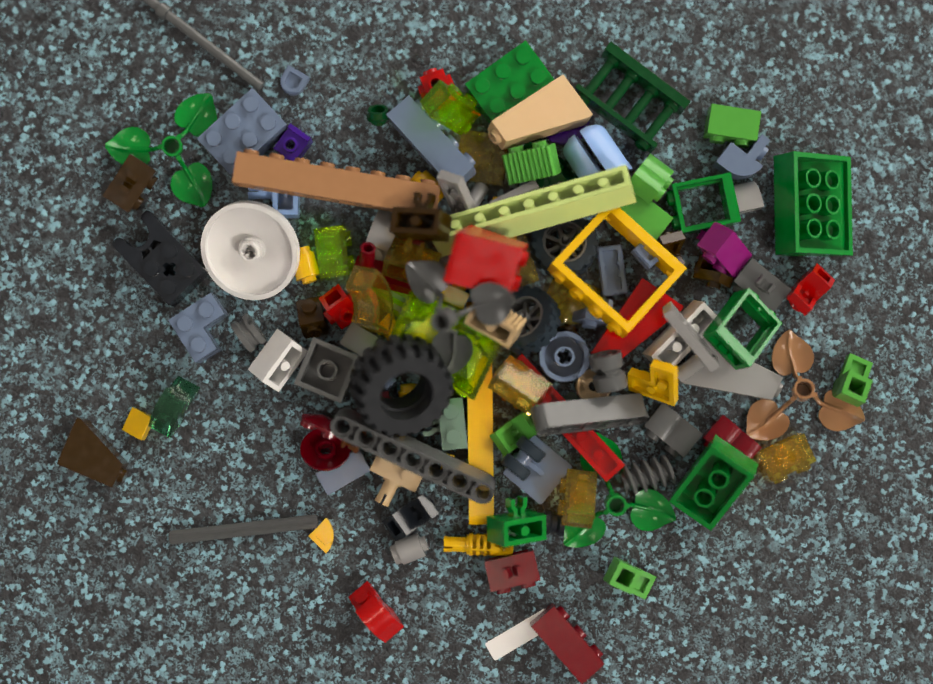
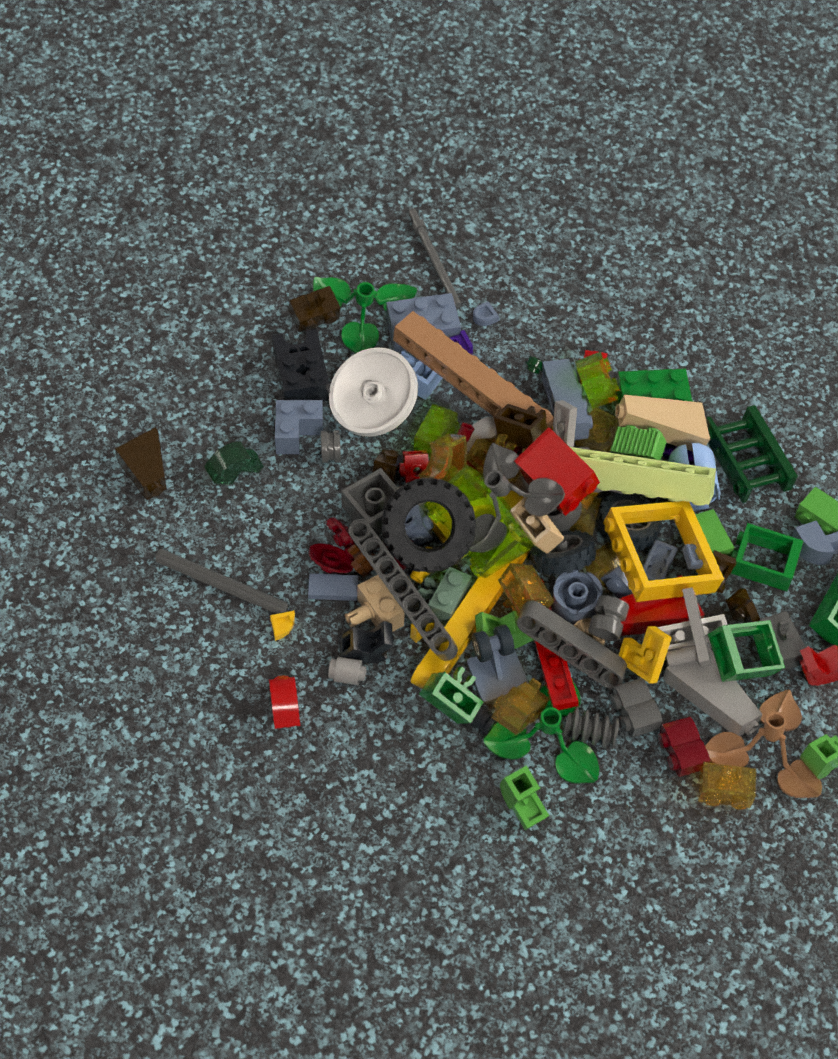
camera: 30 degrees right, 30 degrees down
(137, 424) = (195, 465): yellow slope -> none
(277, 360) = (338, 475): white brick -> none
(307, 267) = (407, 429): yellow brick -> none
(475, 545) = (409, 702): yellow hinge -> none
(512, 571) = (423, 736): dark red brick -> none
(512, 638) = (395, 799): white sticker -> none
(568, 642) = (434, 823): dark red brick -> none
(652, 179) = (731, 510): bright green brick -> none
(713, 482) = (649, 758): green brick -> none
(723, 249) = (765, 588): magenta brick -> none
(748, 197) = (806, 575): light grey brick -> none

